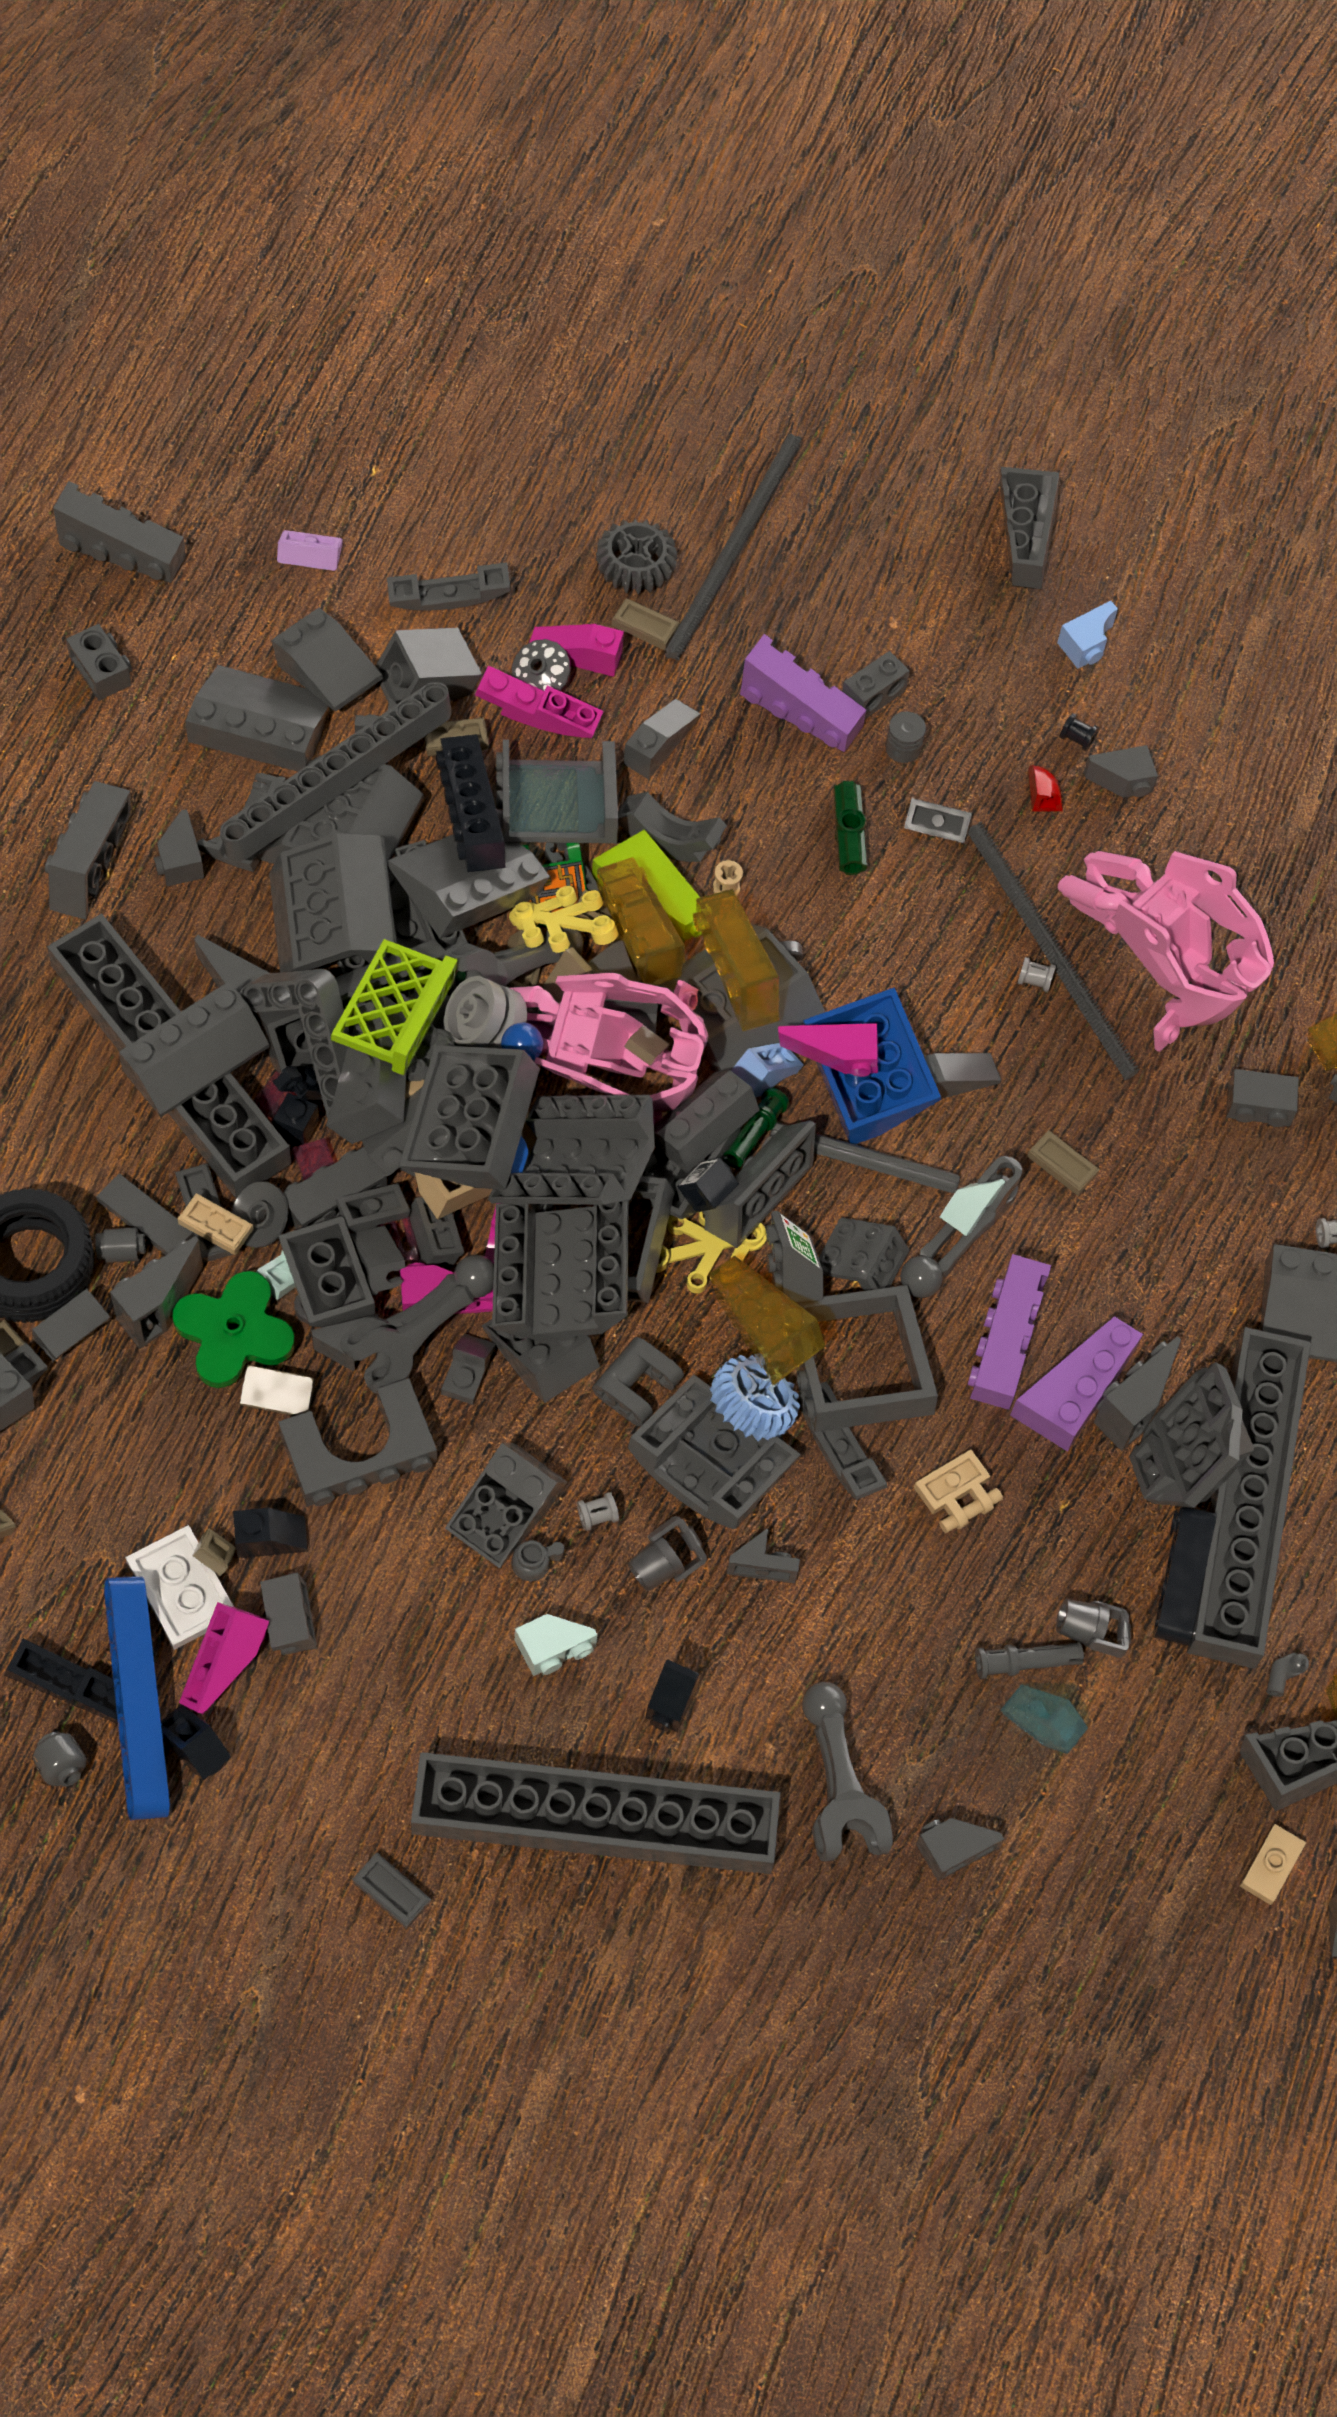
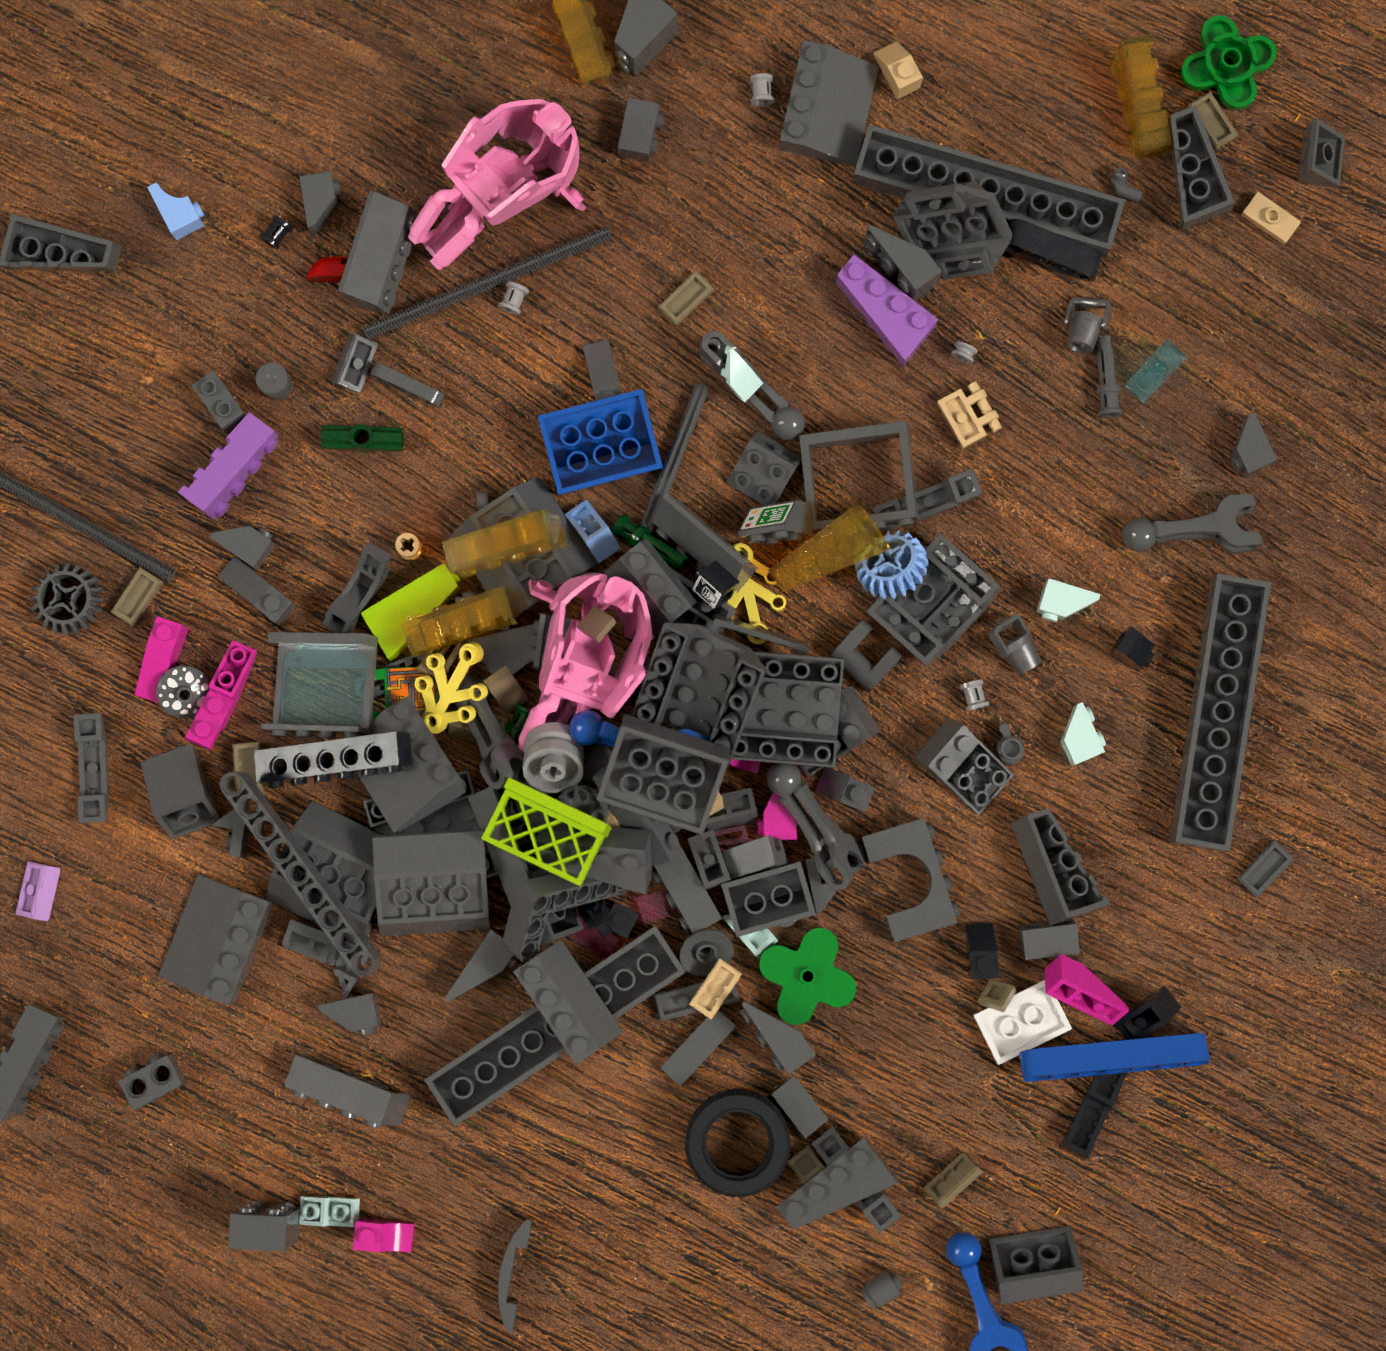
camera: 75 degrees left, 20 degrees up
(58, 1758) = (1159, 1116): dark grey head -> none
(120, 1245) = (726, 1067): dark grey brick -> none
(277, 1391) = (860, 942): slope -> none
(325, 659) = (167, 879): dark grey slope -> none
(366, 1619) = (1056, 869): none -> dark grey wedge
(713, 721) = (247, 544): none -> dark grey slope
(728, 1613) = (1063, 600): none -> light aqua slope
(754, 1563) = (1020, 578): dark grey slope -> none
(841, 1047) = (594, 463): dark pink slope -> none
(918, 870) = (407, 385): none -> dark grey beam
(1009, 1332) = (842, 360): medium lavender wedge -> none
(1037, 1481) = (964, 352): none -> light grey bush
(1065, 823) = (378, 254): none -> dark grey slope

